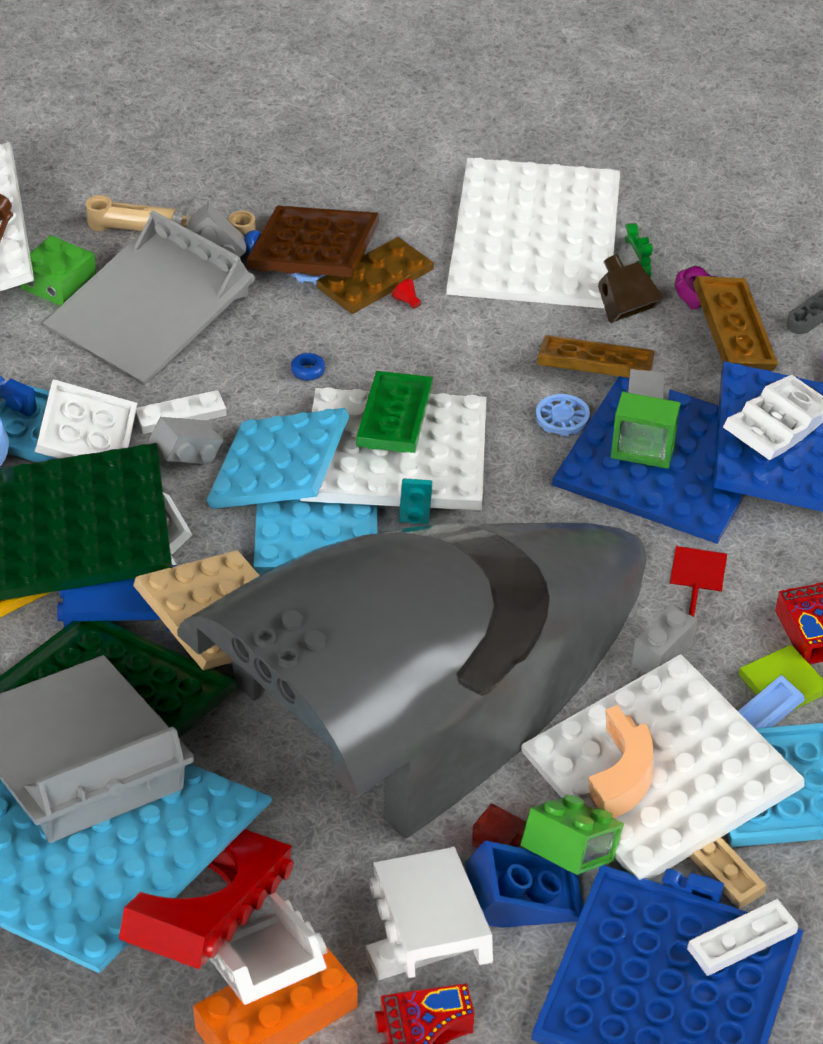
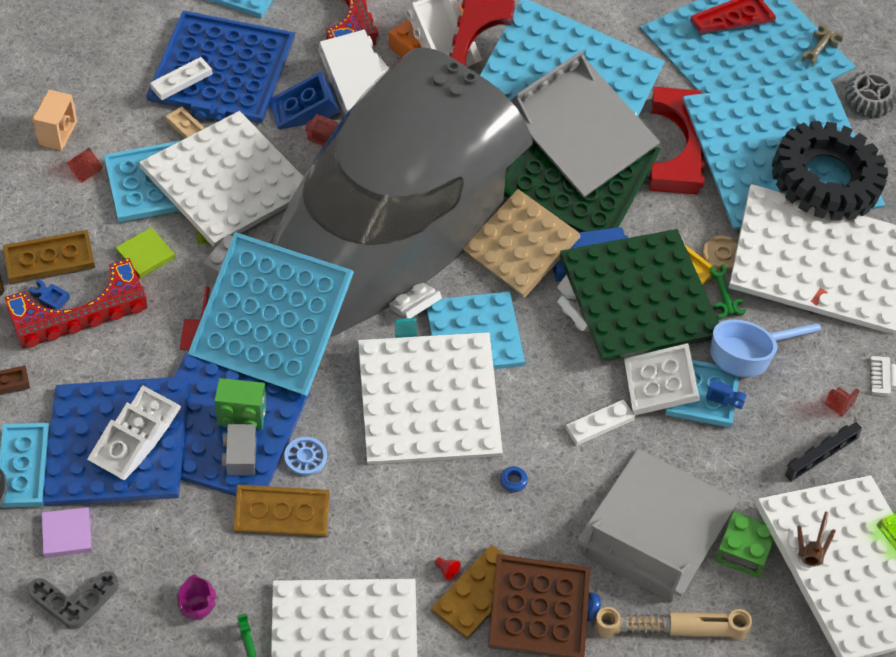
camera: 170 degrees right, 10 degrees up
(185, 440) = (584, 373): light grey brick -> none
(216, 228) = (623, 585): light grey brick -> none
(278, 458) = (512, 366): medium azure plate -> none
(394, 412) = (434, 410): green plate -> none
(572, 834) = (279, 118): bright green piece -> none
(600, 520) = (271, 313): none -> medium azure plate
(626, 290) = (257, 579): dark brown torso -> none
(630, 778) = (248, 145): light nougat arch -> none
(735, 322) = (165, 552): pearl gold plate -> none
(772, 704) = (157, 225): light blue tile -> none

